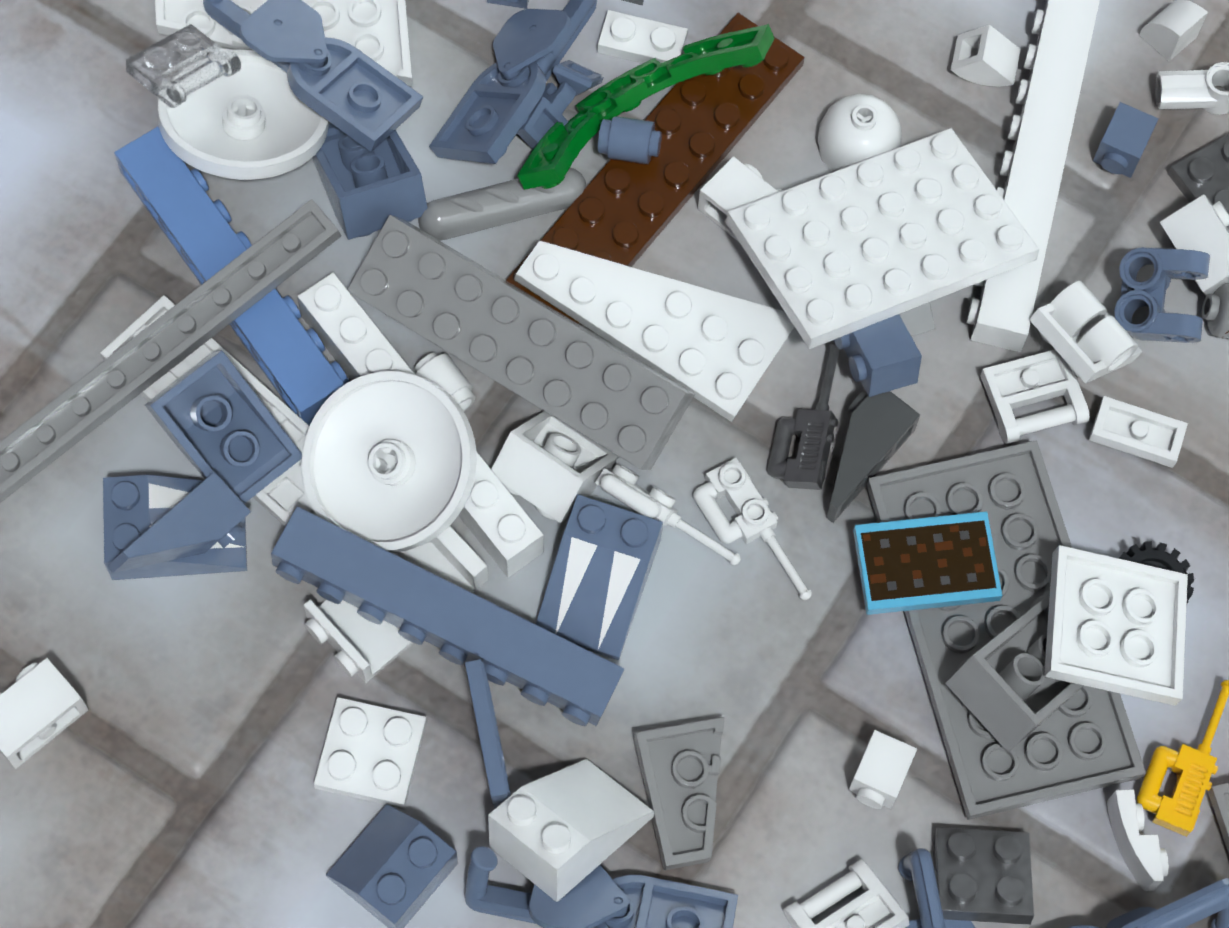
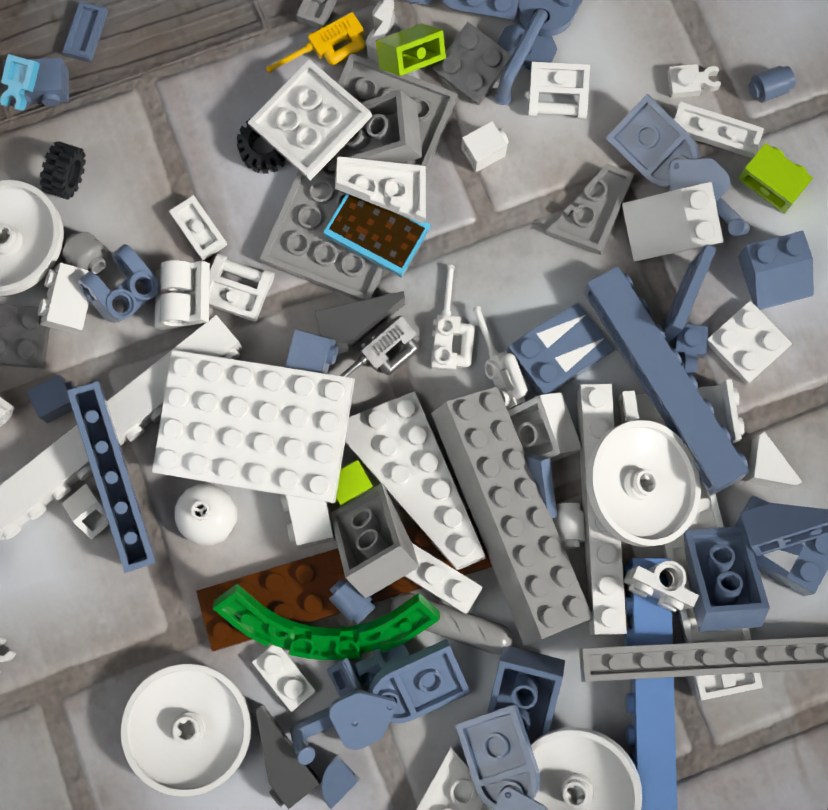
camera: 140 degrees left, 10 degrees up
(246, 607) = (769, 466): none -> white slope
(292, 352) = (647, 582): none -> white plate
(442, 700) = (691, 344): none -> sand blue plate
(509, 397) = (542, 473): none -> sand blue tile
(560, 224) = (444, 581): none -> white plate
(653, 205) = (372, 542): none -> light grey slope
(725, 265) = (352, 483): none -> lime brick
(960, 615) = (385, 184): none -> white wing
(990, 86) = (111, 476): none -> sand blue brick
(1073, 820) = (410, 49): none -> lime brick

